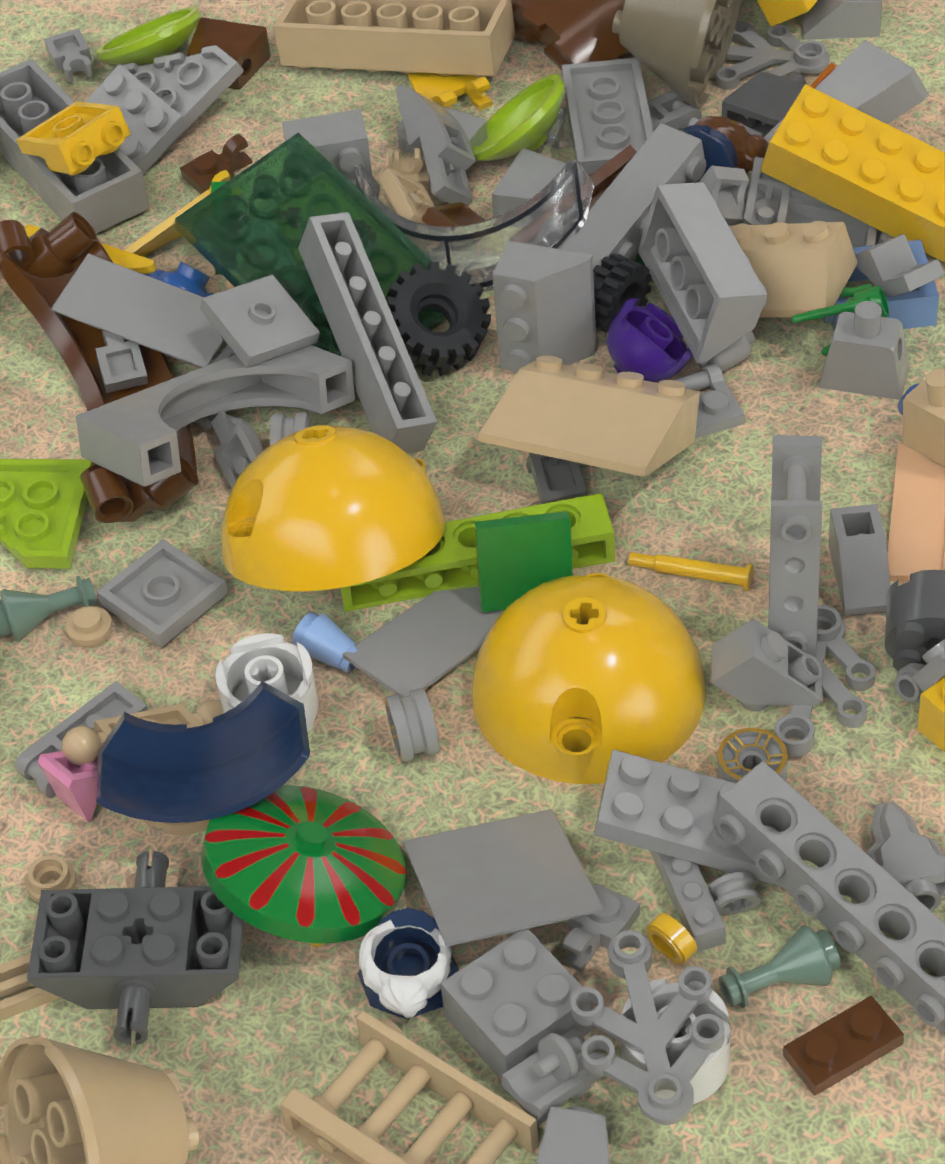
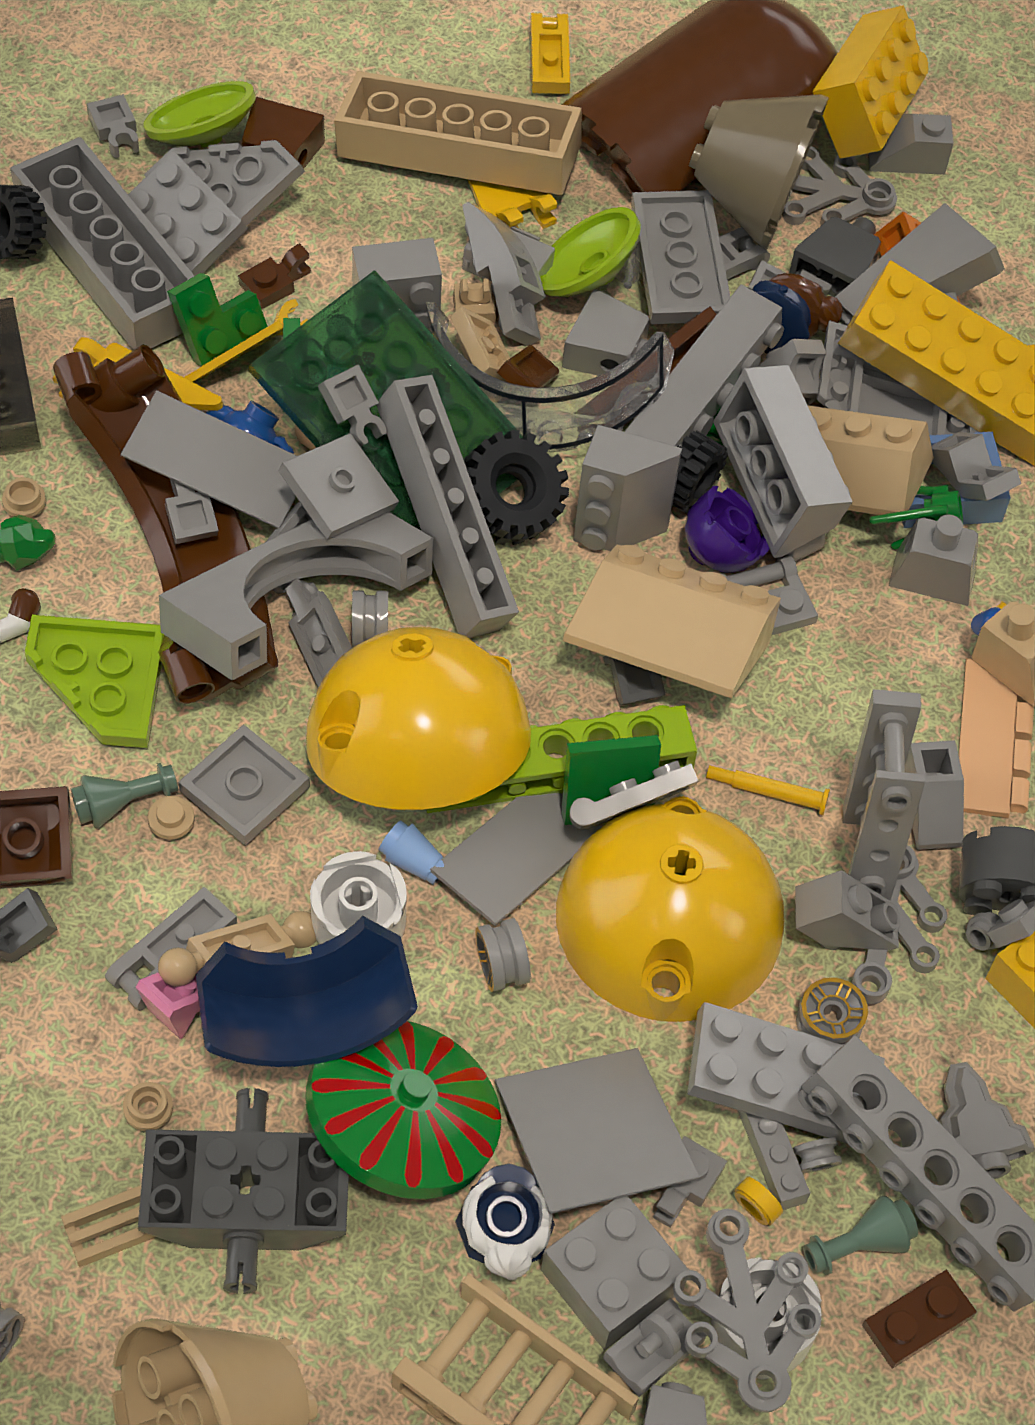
camera: 10 degrees left, 10 degrees up
(76, 136) = (136, 245): yellow plate -> none
(142, 201) = (213, 327): none -> green plate
(274, 244) = (350, 399): none -> light grey plate
(576, 557) = (629, 796): none -> light grey plate

